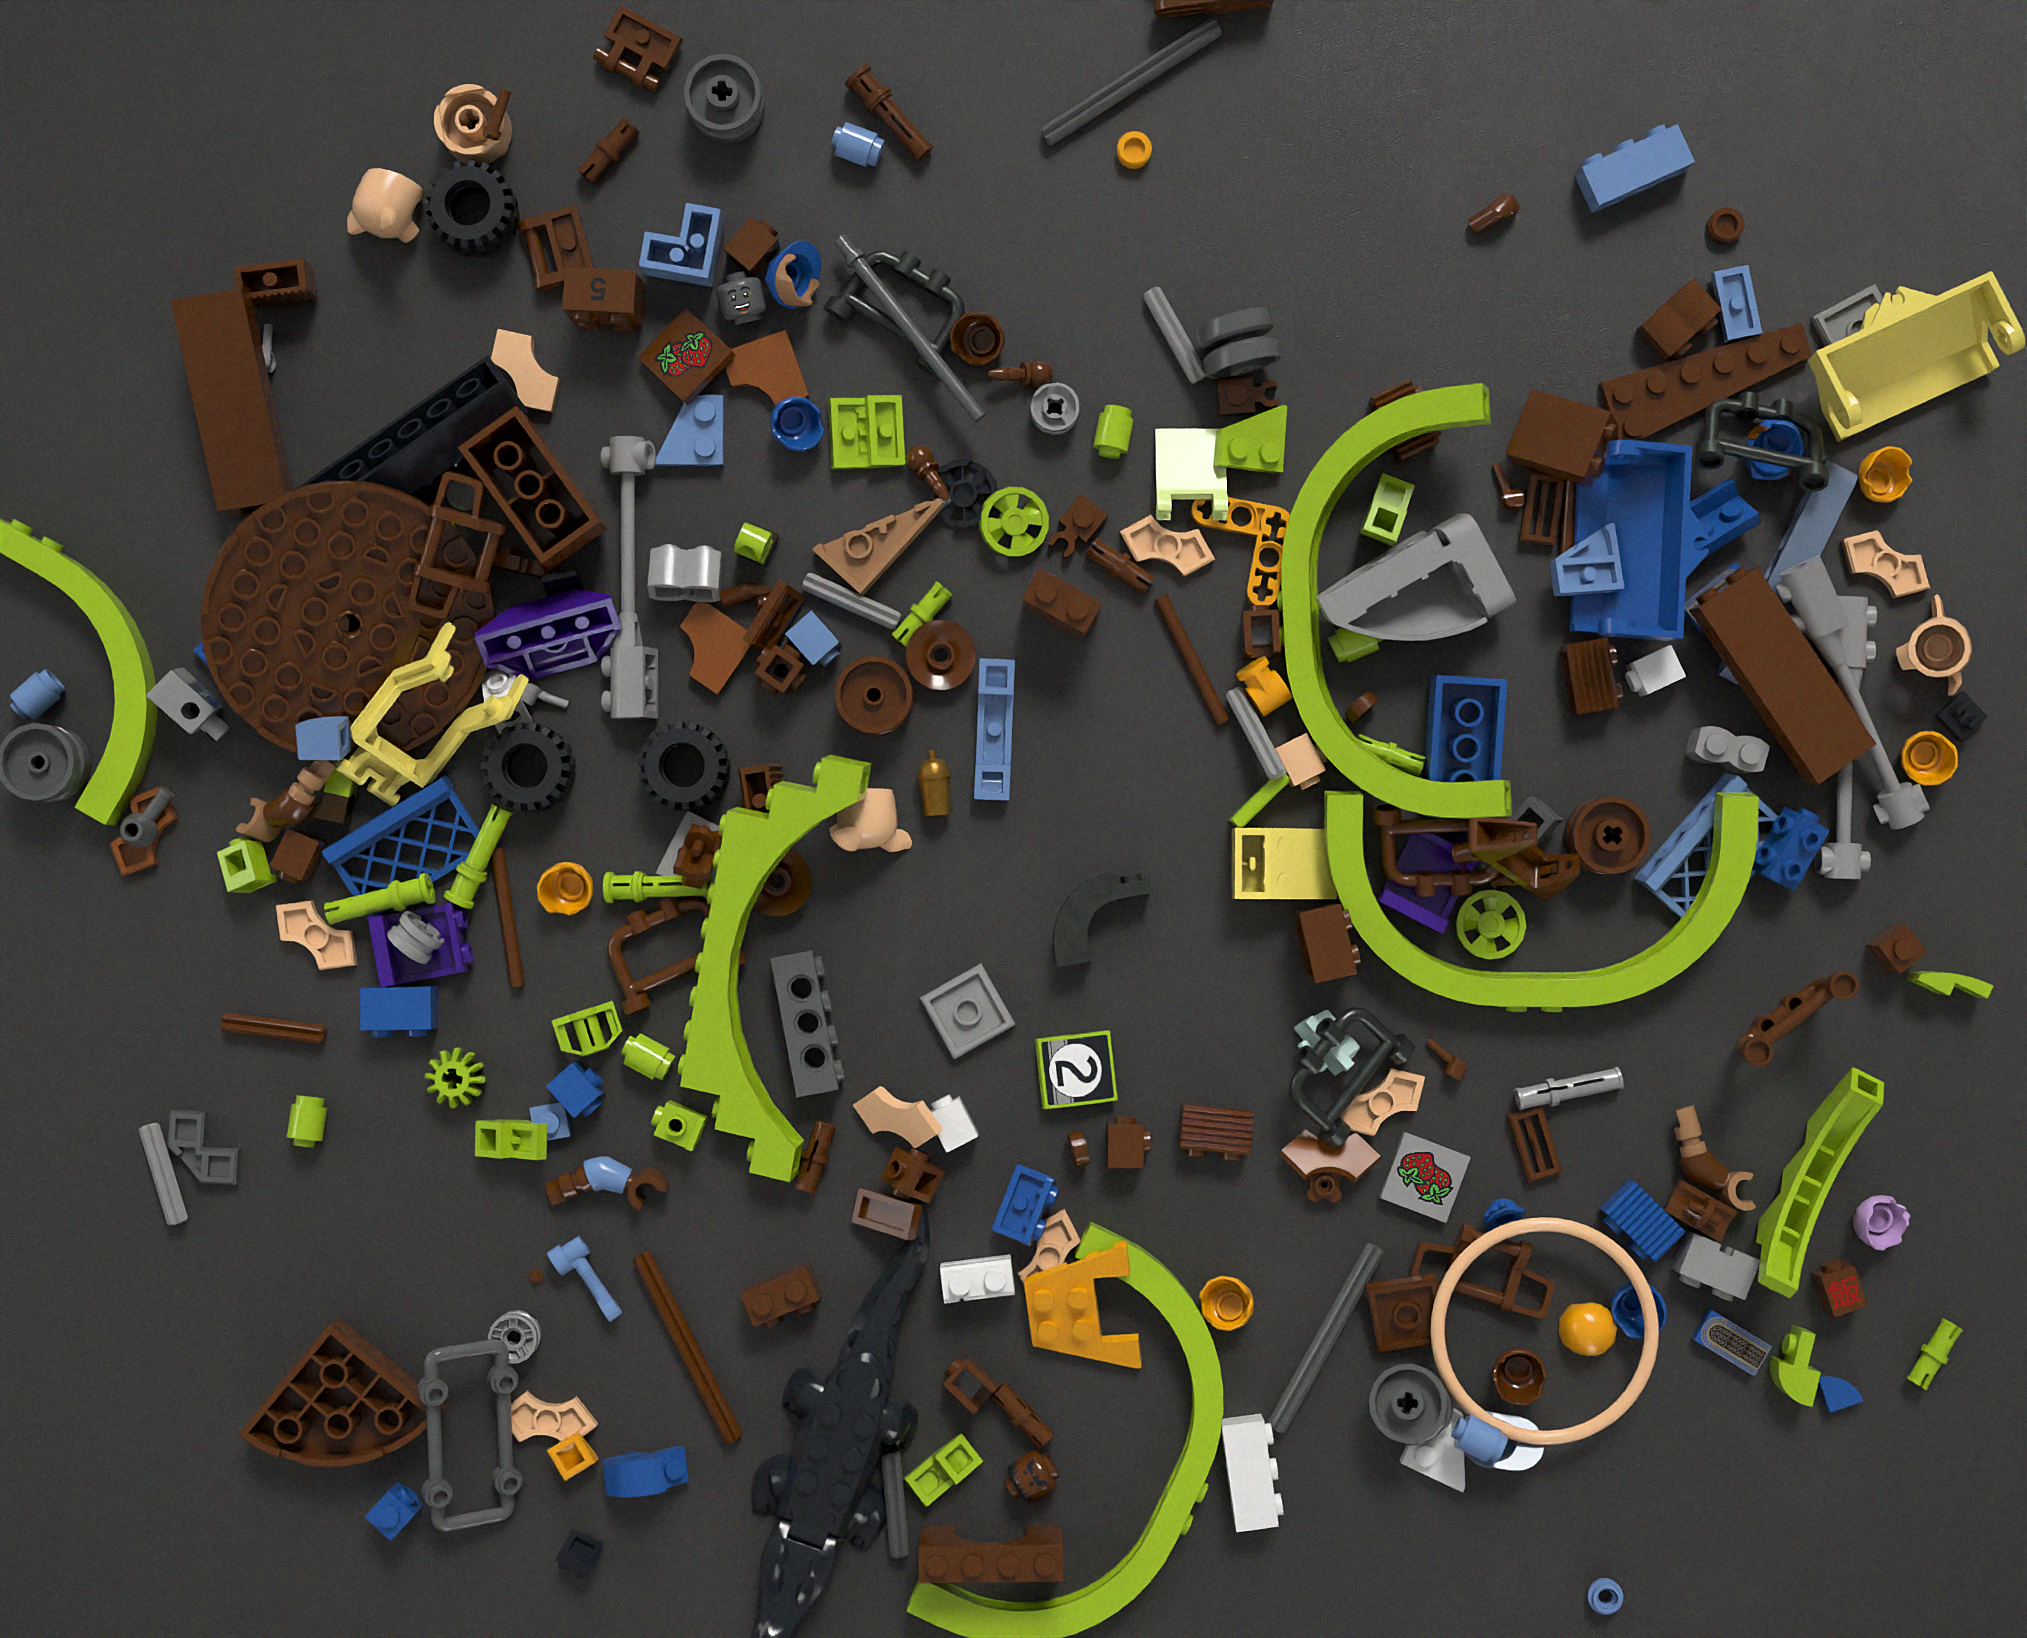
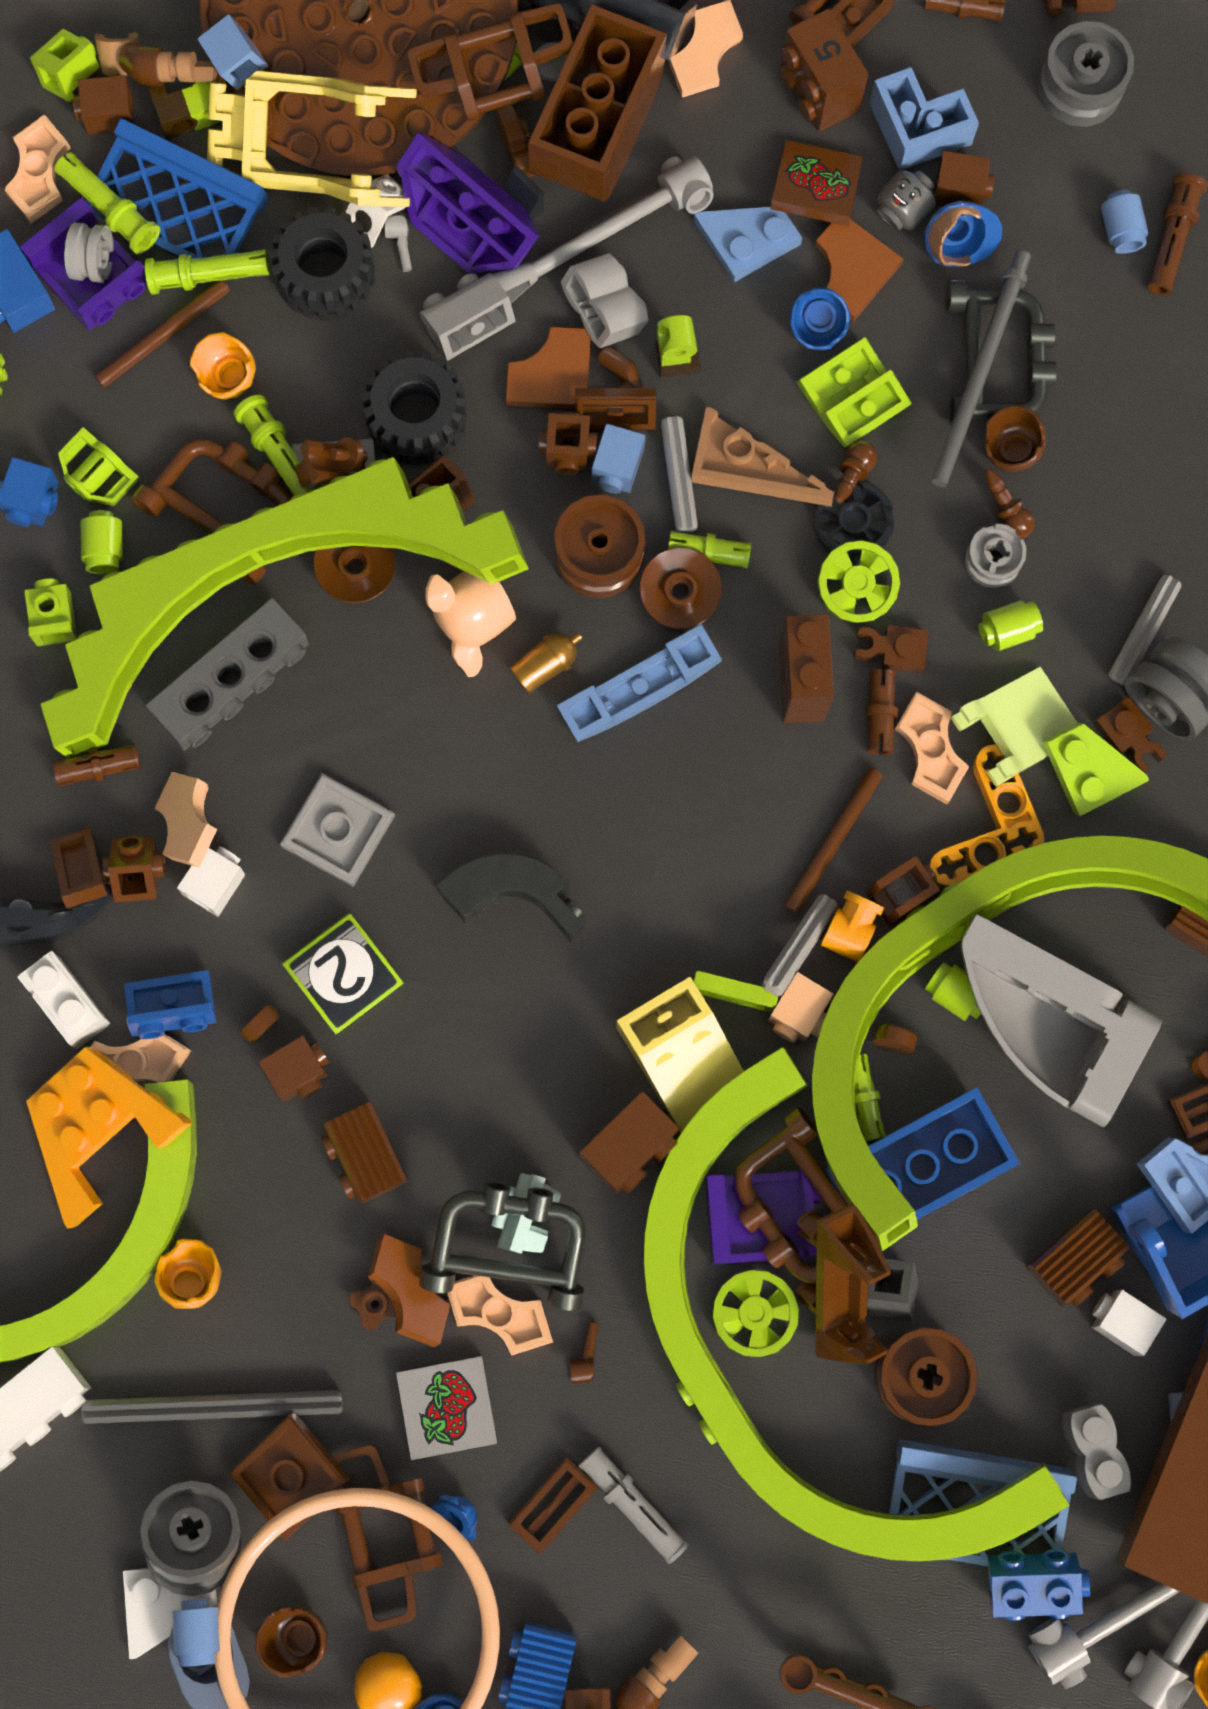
camera: 50 degrees right, 10 degrees down
(1387, 509) = (1111, 941): lime brick -> none

